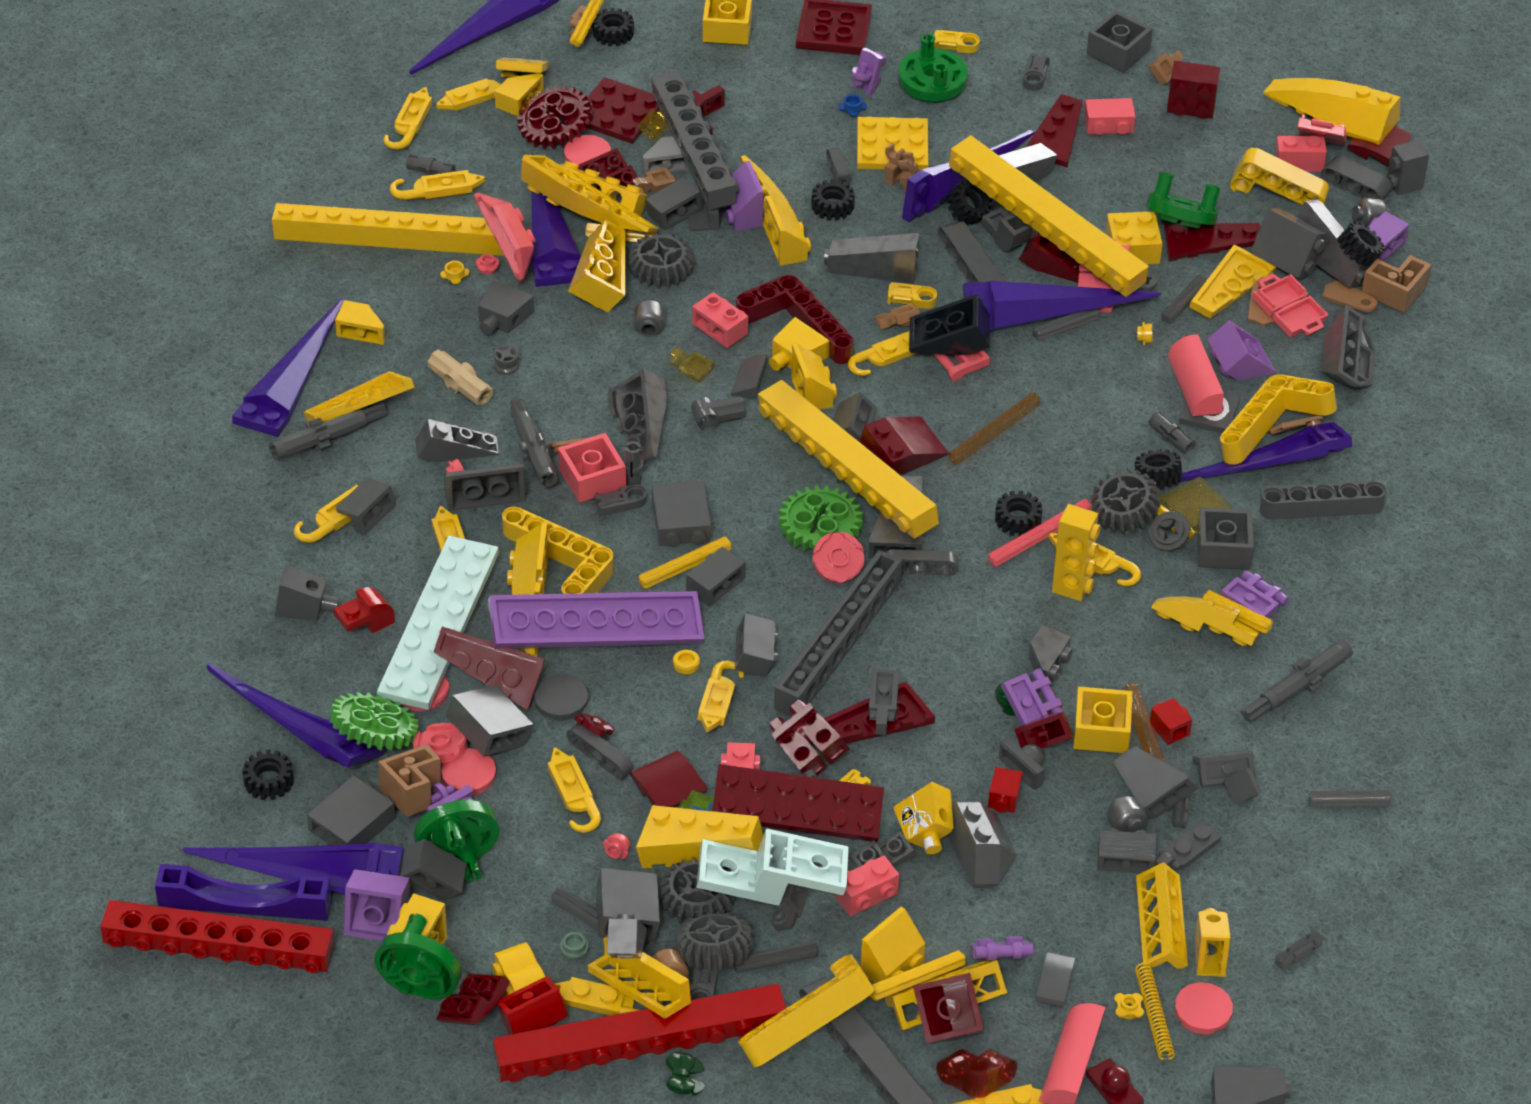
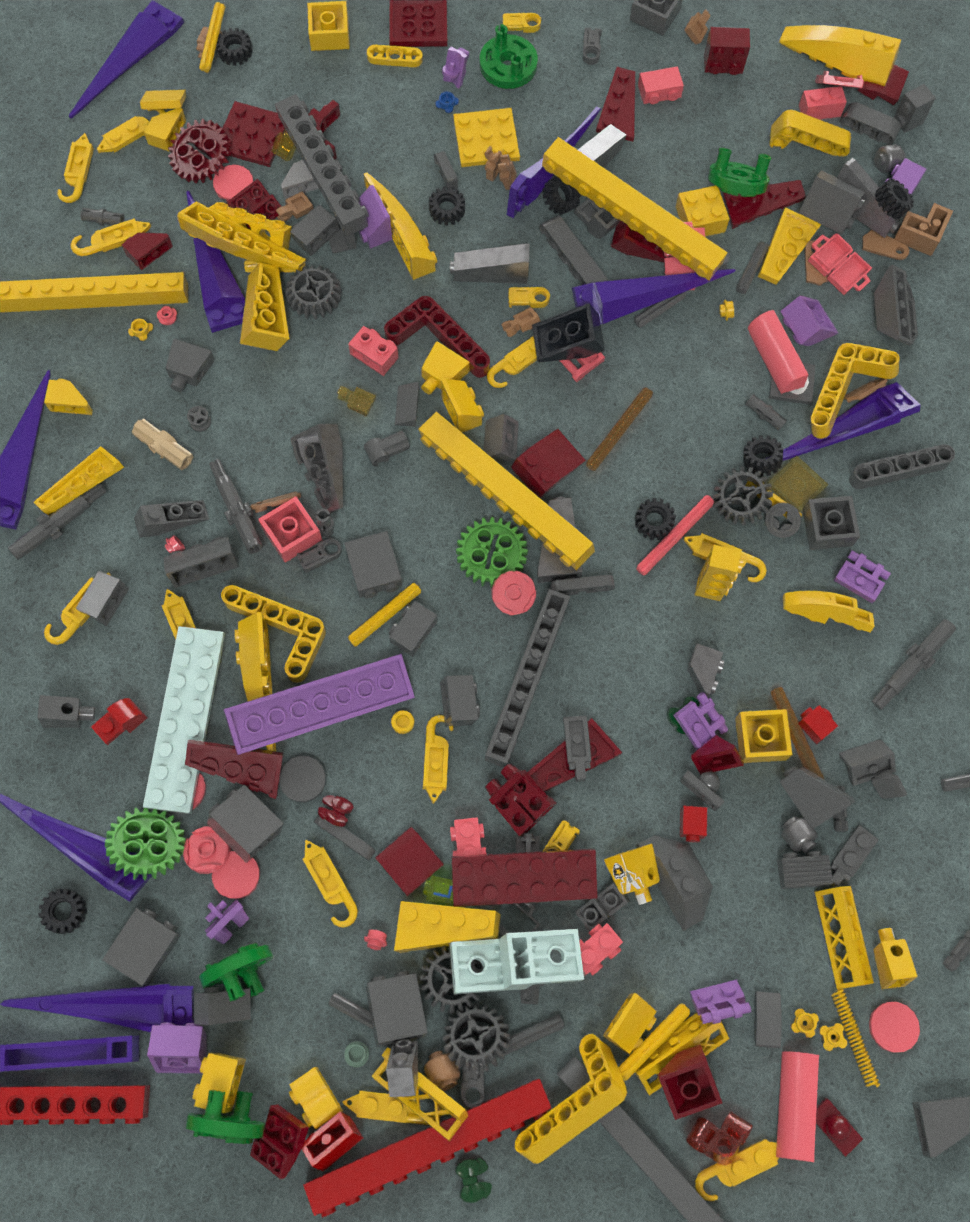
camera: 10 degrees left, 25 degrees up
(409, 778) = (182, 901): medium nougat brick -> none
(463, 196) = (146, 248): none -> dark red slope
(508, 232) = (179, 290): coral wedge -> none
(649, 318) = (313, 355): flat silver head -> none
(794, 50) = (389, 50): none -> yellow beam
(1102, 983) = (811, 1019): none -> yellow plate
(1246, 615) = (862, 600): yellow axle -> none

